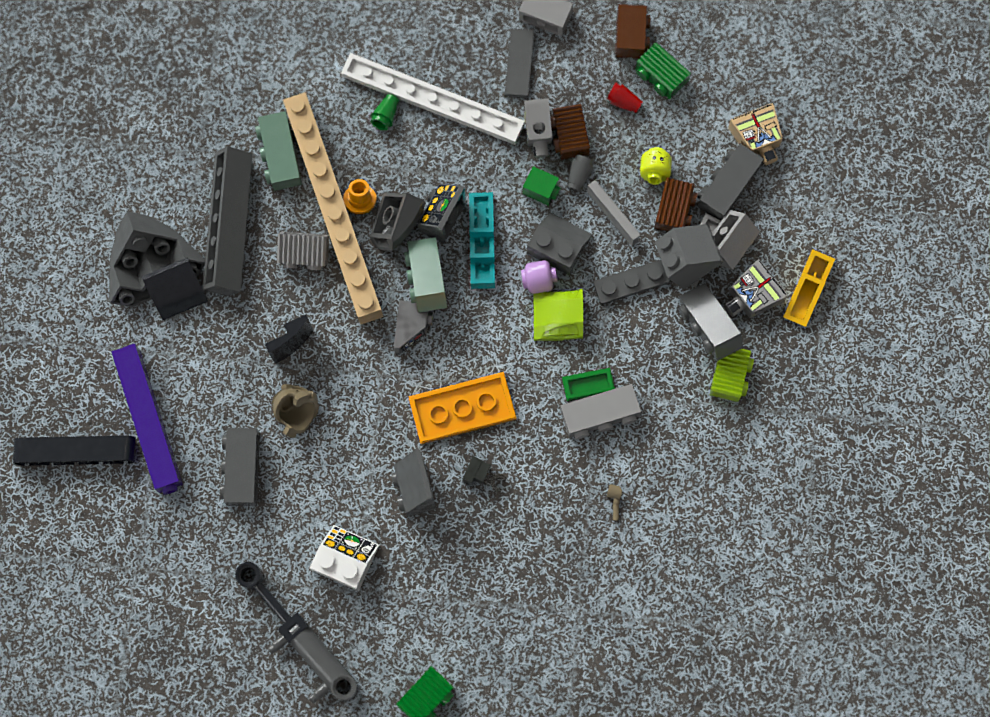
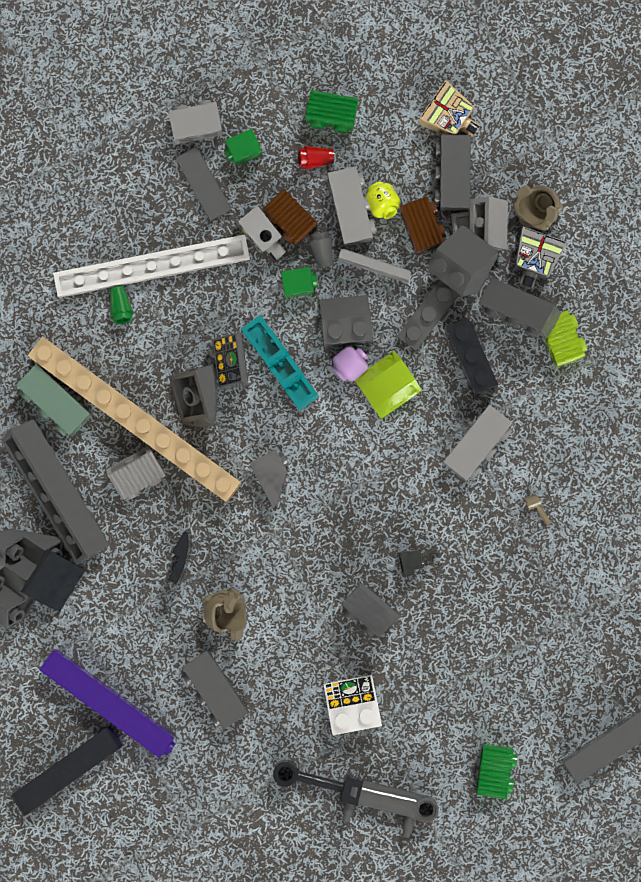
camera: 35 degrees left, 10 degrees up
(359, 197) = (151, 396): light orange piece -> none
(425, 275) = (256, 427): brick -> none
(462, 408) = (361, 516): light orange tile -> none
(570, 54) = (242, 148): none -> green brick
(587, 384) = (451, 426): green tile -> none
(626, 154) = (351, 206): none -> light grey brick
(631, 31) = (281, 92): reddish brown brick -> none
(643, 337) = (471, 357): none -> black brick
(788, 245) = (544, 199): none -> dark tan helmet
(809, 288) = (578, 221): yellow slope -> none

